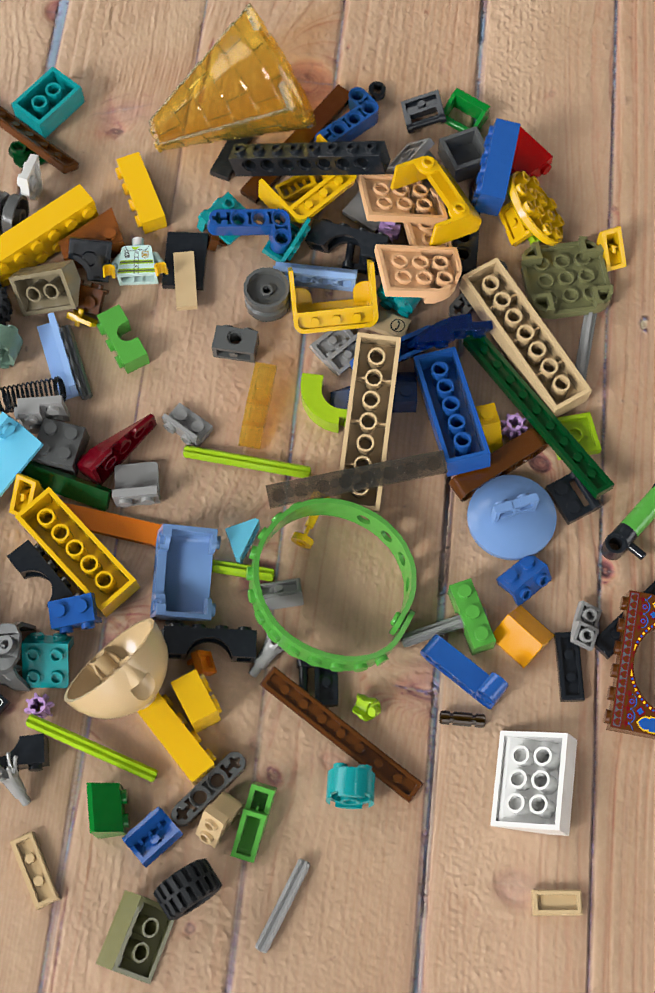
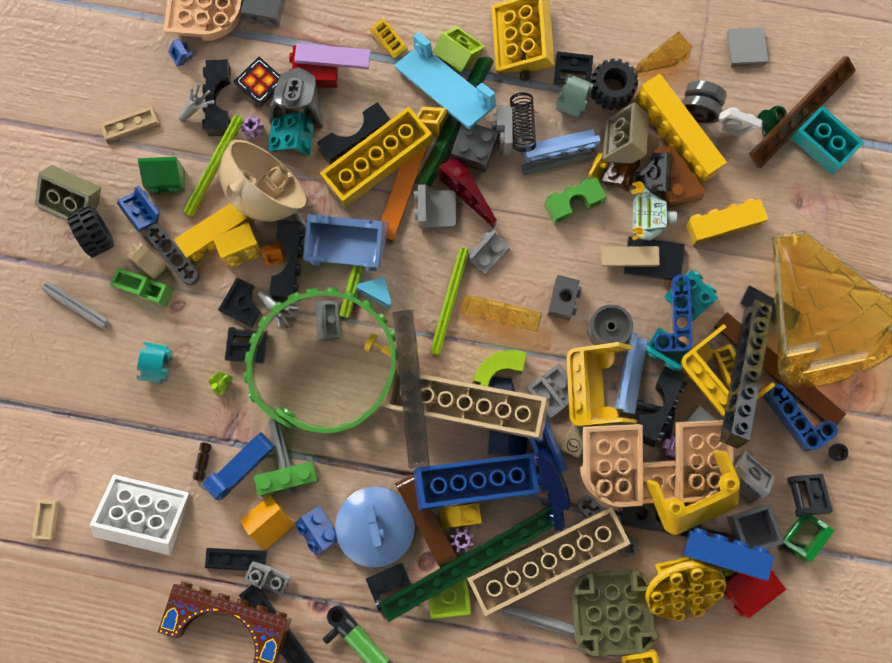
camera: 90 degrees right, 10 degrees up
(73, 613) = (321, 152): blue bracket -> none
(259, 702) = (239, 303): none -> black tile
(341, 734) = (199, 360): reddish brown tile -> none

